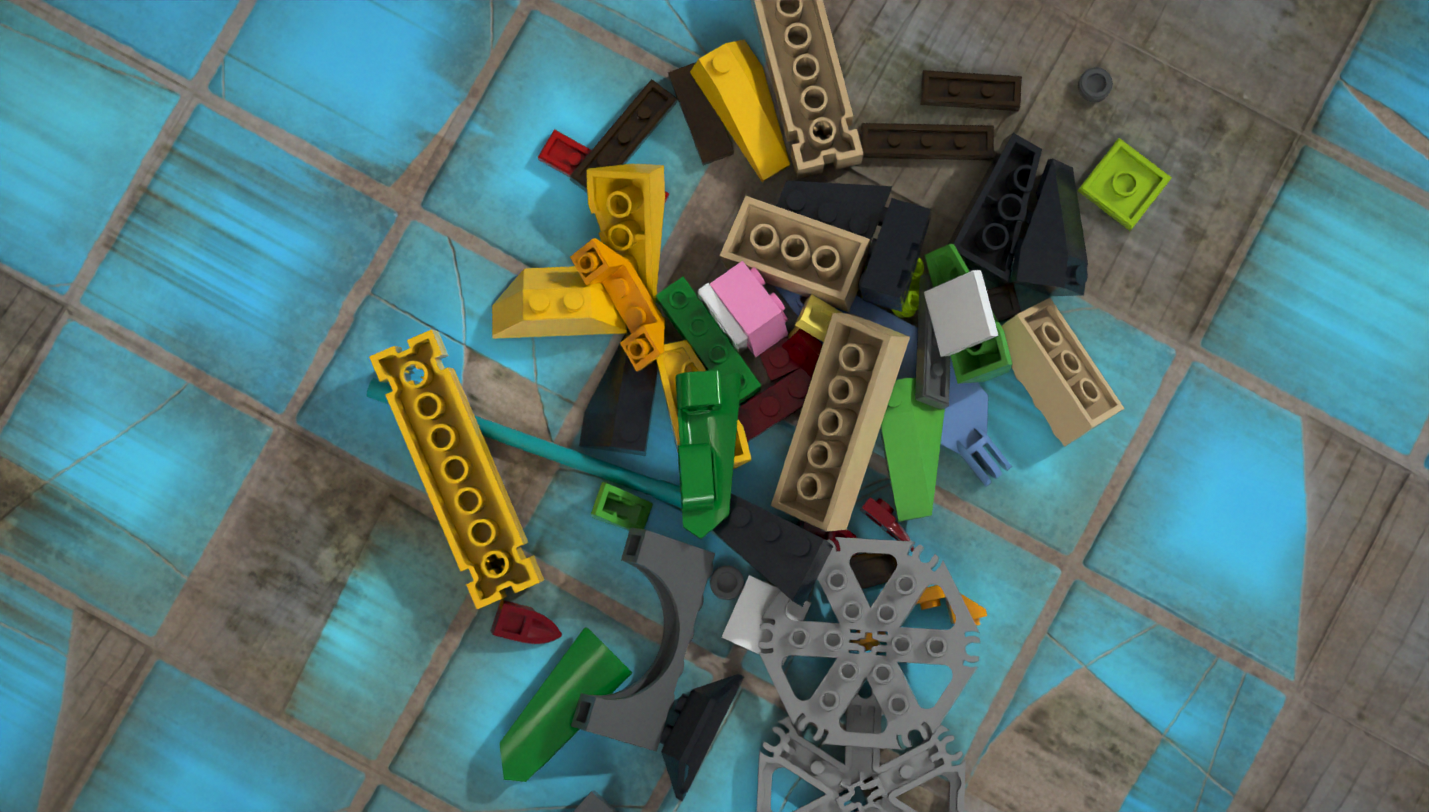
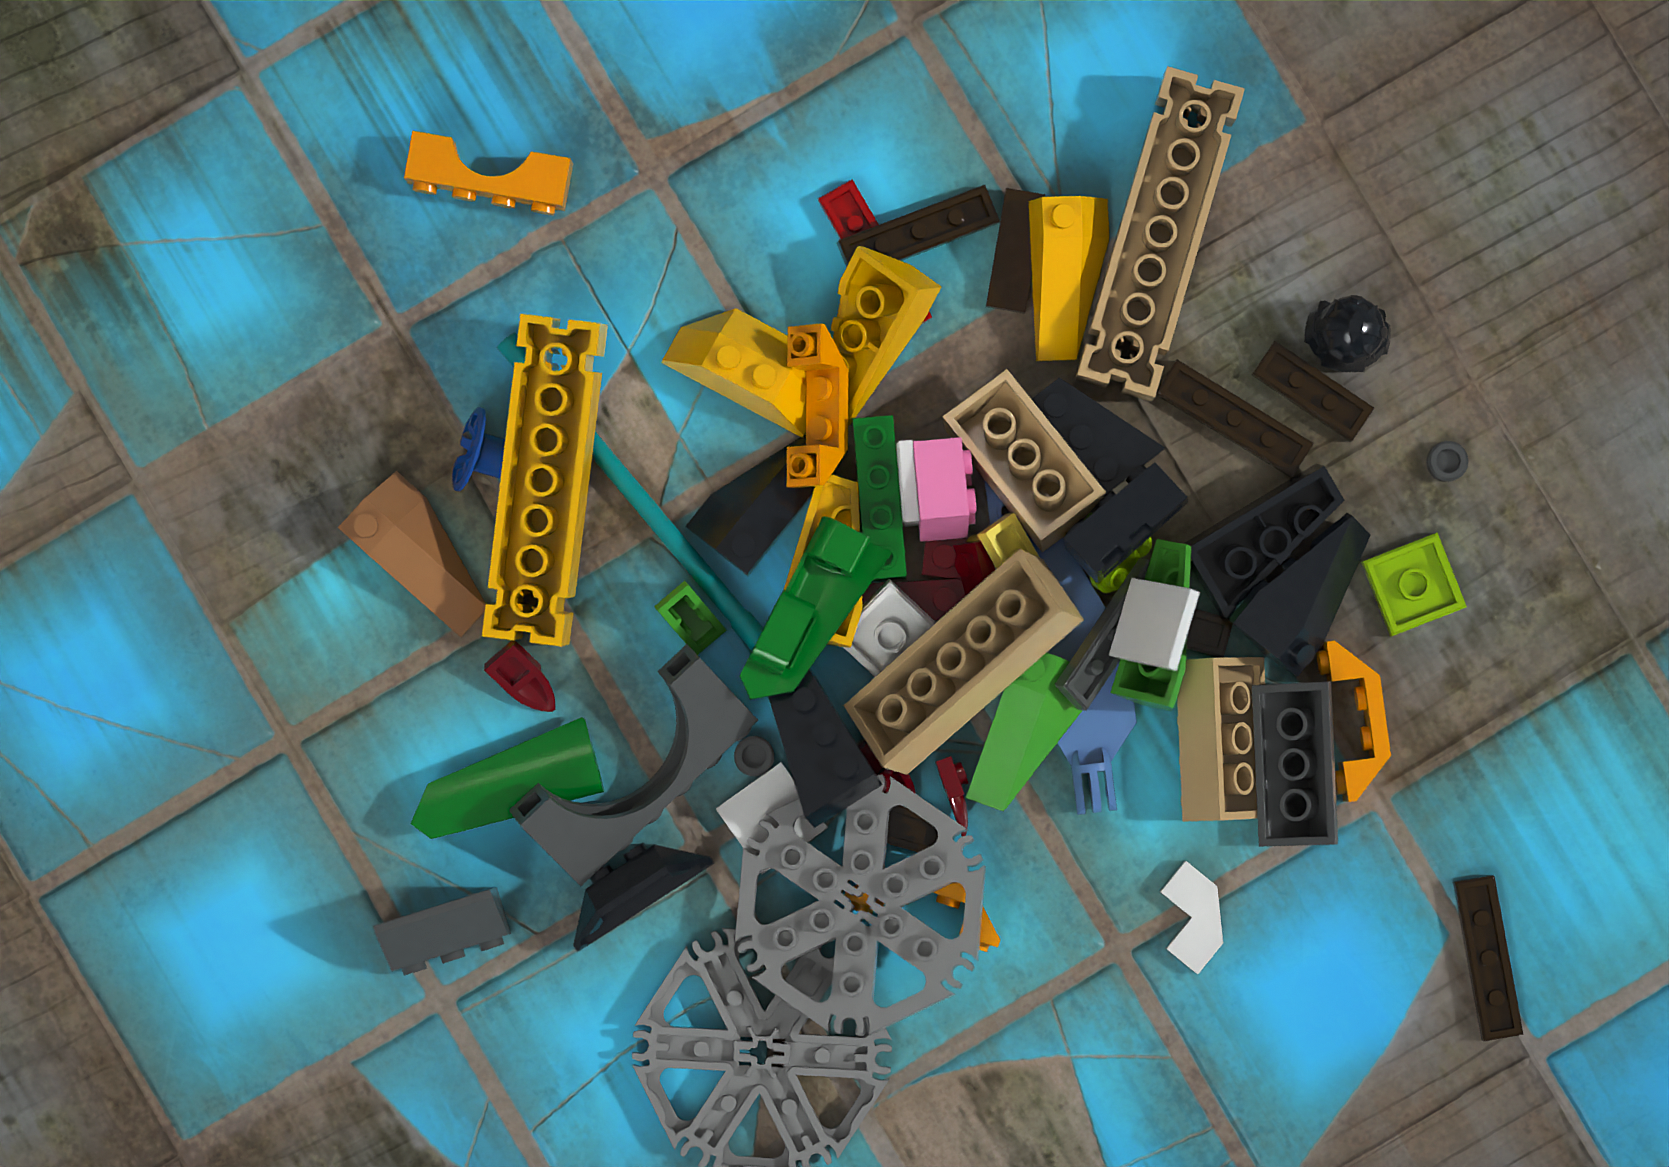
camera: 30 degrees right, 5 degrees up
(327, 261) = (538, 181): none -> light orange arch
(385, 575) = (409, 543): none -> medium nougat wedge
(400, 476) = (483, 452): none -> blue wheel
(769, 432) = (887, 628): none -> white tile
(971, 34) = (1348, 333): none -> black helmet
(1108, 269) = (1342, 665): none -> light orange slope
(1109, 497) = (1203, 931): none -> white tile
(1120, 358) = (1295, 764): none -> dark grey slope
(1339, 418) = (1488, 958): none -> dark brown tile

